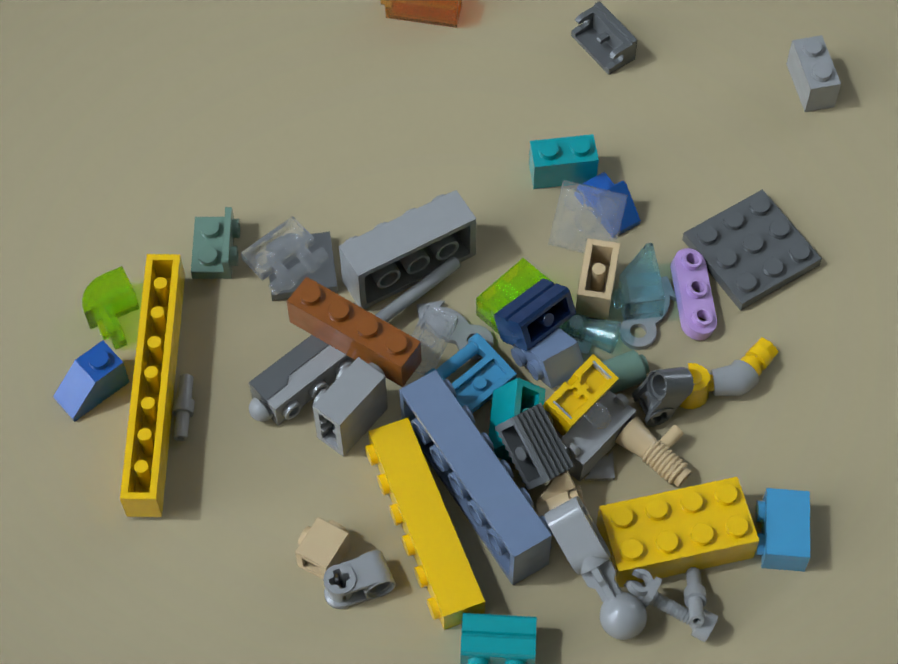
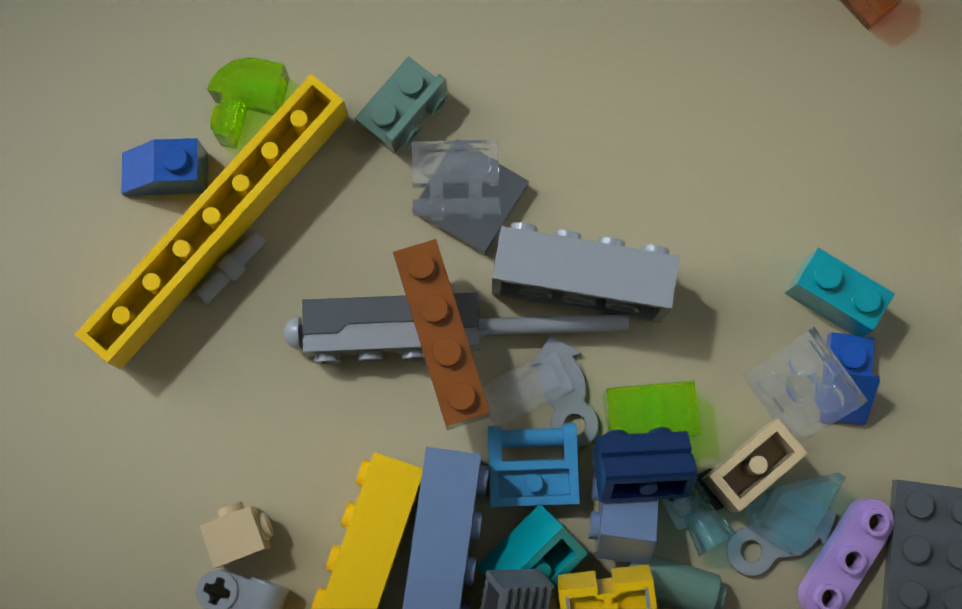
camera: 40 degrees right, 20 degrees up
(350, 405) = (378, 408): light grey brick -> none

